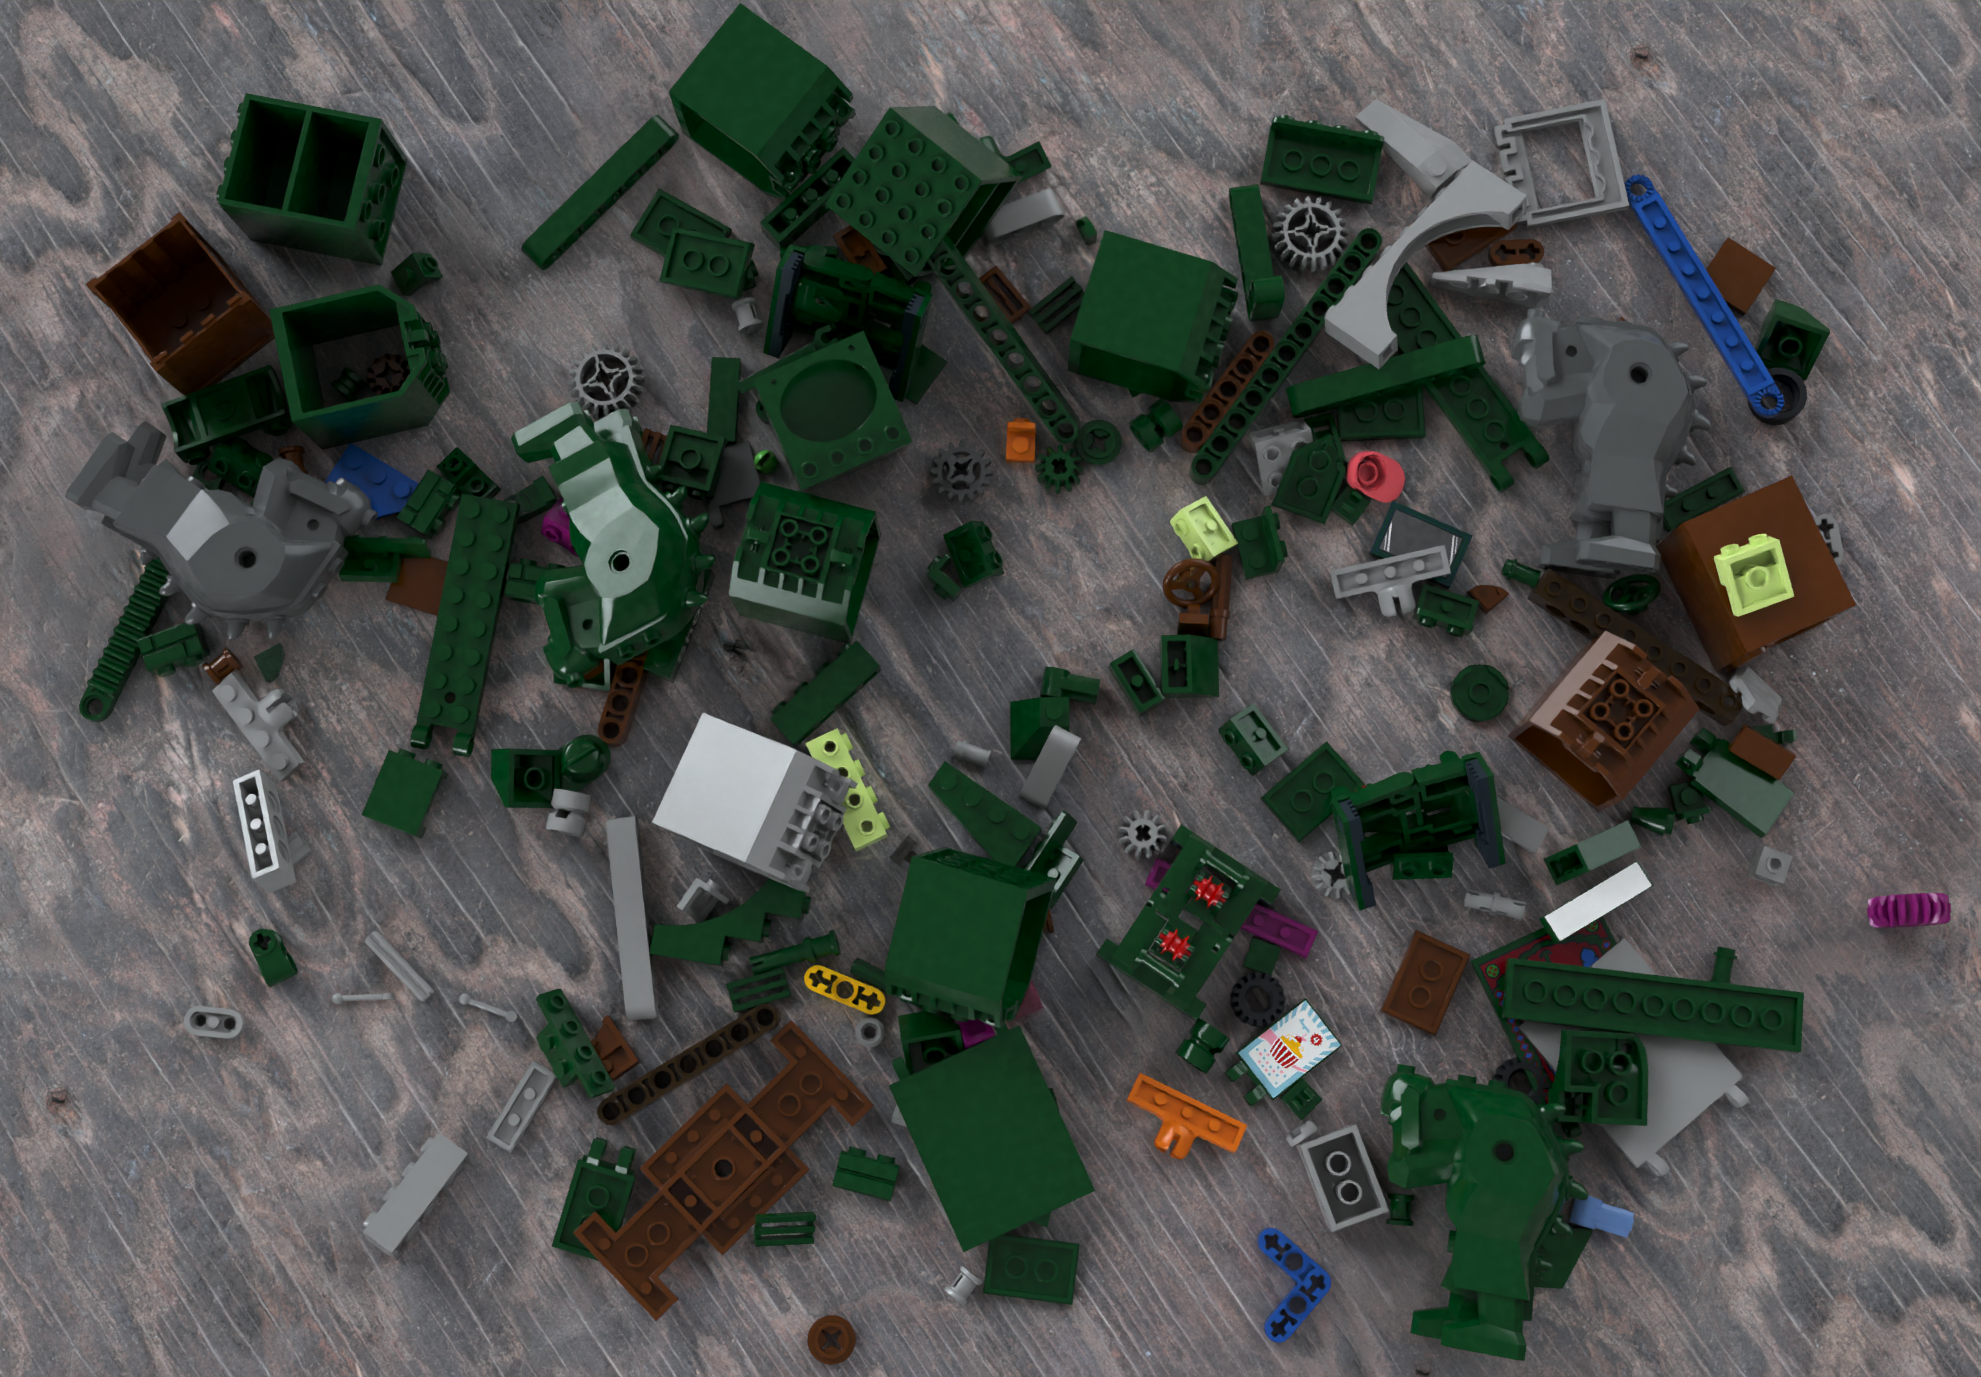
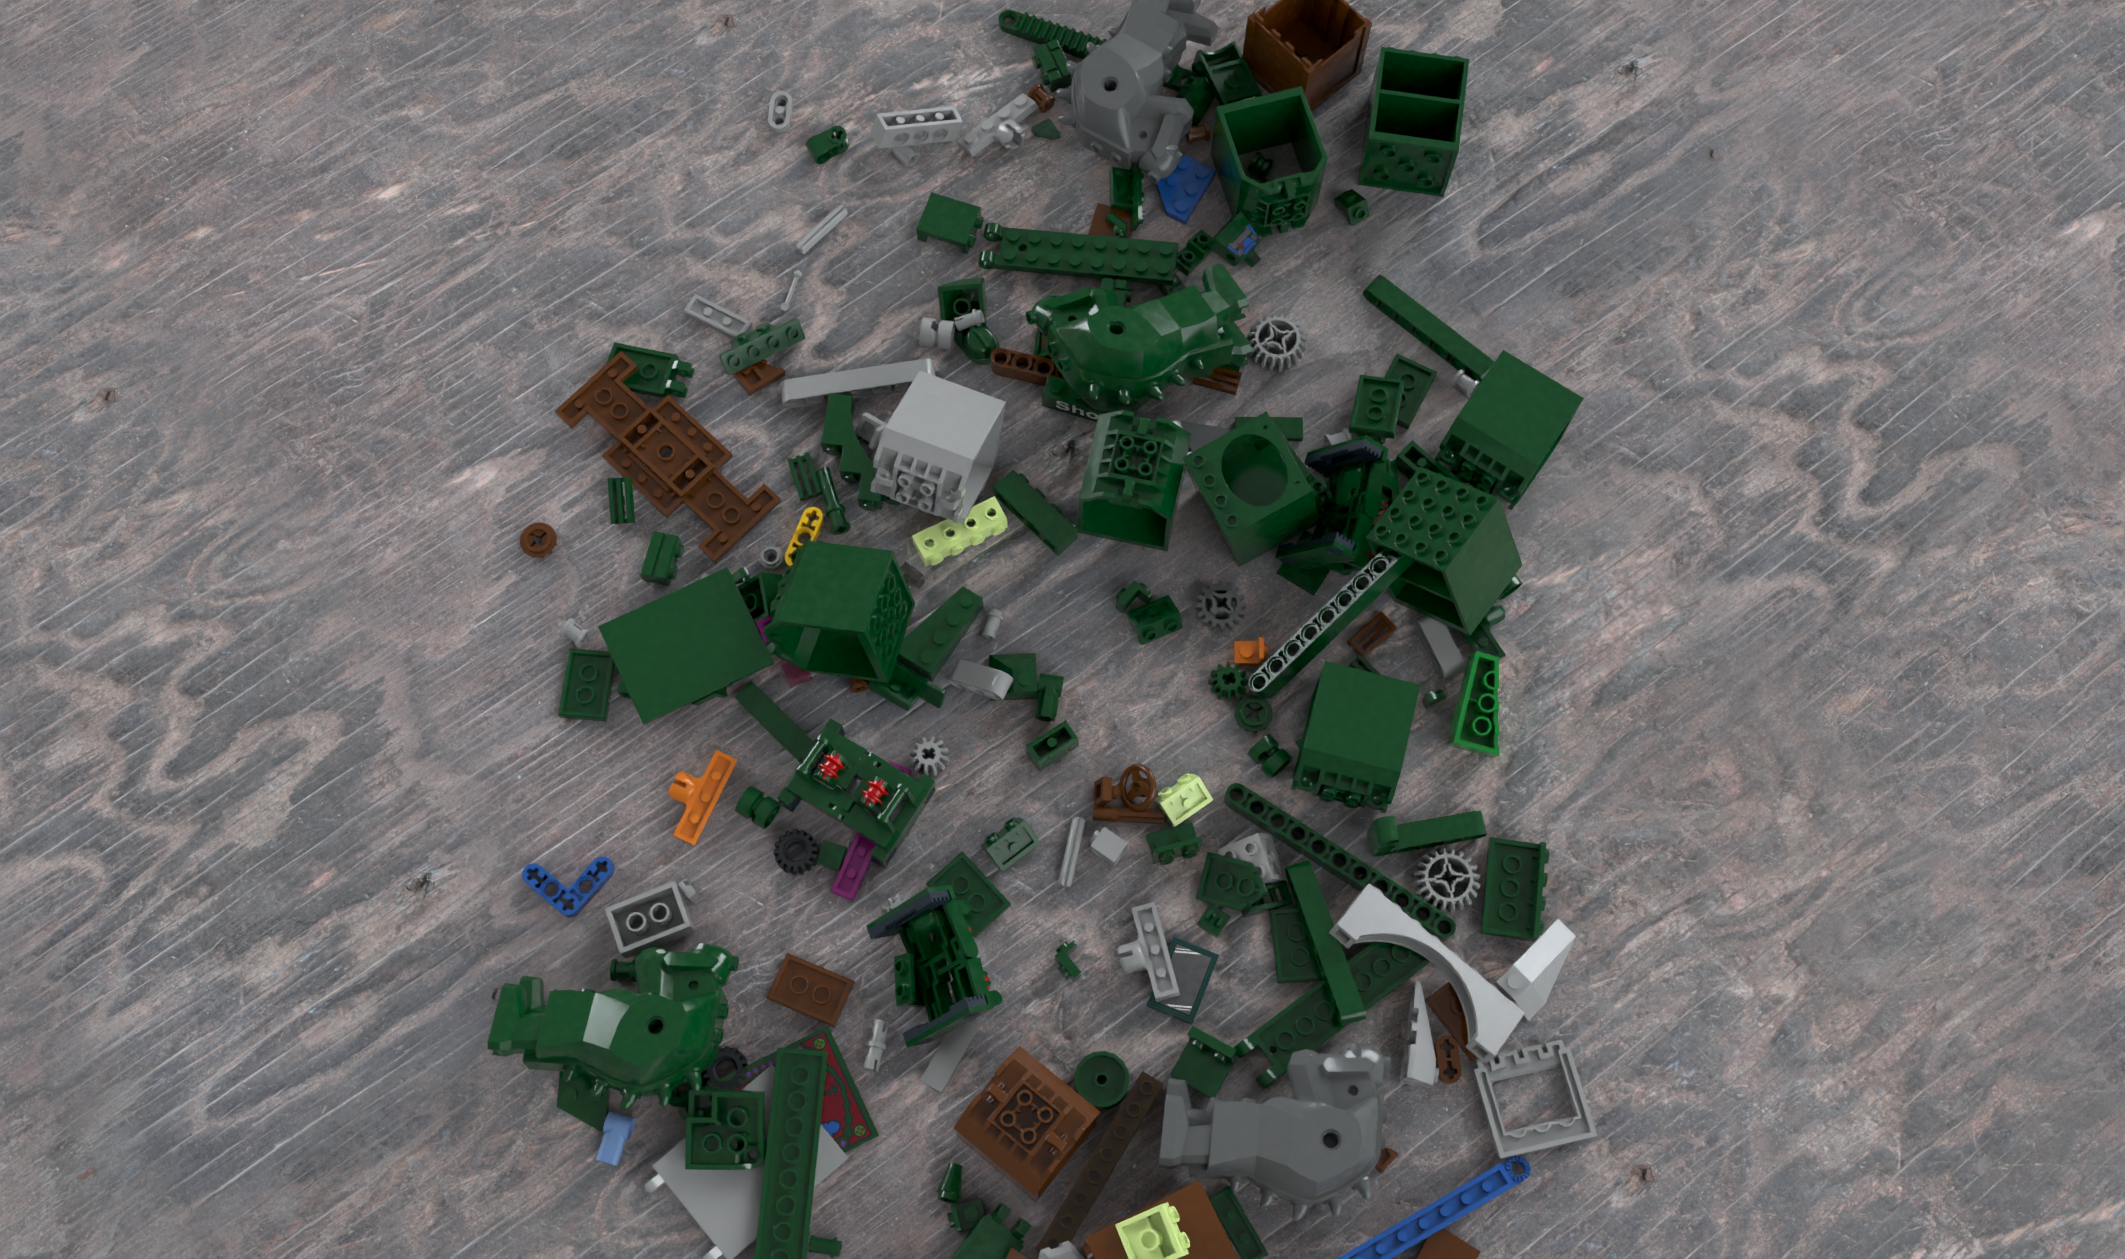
camera: 85 degrees right, 10 degrees down
(338, 998) = (798, 191): light grey hinge -> none
(415, 1195) = (651, 246): light grey wedge -> none
(425, 571) = (1118, 224): none -> dark green arm
(430, 505) = (1170, 225): dark green brick -> none
(461, 421) = (1236, 241): none -> dark green torso
(553, 767) = (971, 319): none -> light grey pin
(674, 1065) = (754, 435): dark brown beam -> none
(677, 155) = (1464, 383): none -> light grey bush
(691, 461) = (1214, 404): dark green plate -> none
(1088, 1026) = (774, 721): none -> dark green tile
(1105, 178) = (1477, 707): none -> green wedge
(1188, 666) = (1067, 788): dark green slope -> none
(1232, 379) = (1298, 803): reddish brown beam -> none
(1260, 622) = (1108, 846): none -> light grey brick
(1264, 667) = (1071, 852): none -> light grey axle
(1284, 1052) = (753, 875): tile -> none
(1301, 1099) = (716, 890): dark green tile -> none
(1375, 476) = (1238, 939): coral cap -> none
(1406, 676) = (1067, 966): none -> dark green bracket
(1445, 610) = (1126, 1000): dark green bracket -> none
(1479, 693) = (1056, 1033): dark green tile -> none
(1488, 596) = (1140, 1039): reddish brown tile -> none
(1520, 524) = (1204, 1062): none -> dark green bracket
(1520, 572) = (1162, 1065): dark green pin -> none
(1541, 625) = (1112, 1069): none -> dark green wheel
(1592, 852) = (921, 1129): dark green slope -> none
(1596, 902) = (877, 1131): white slope -> none
(1633, 597) = (1143, 1163): dark green piece -> none

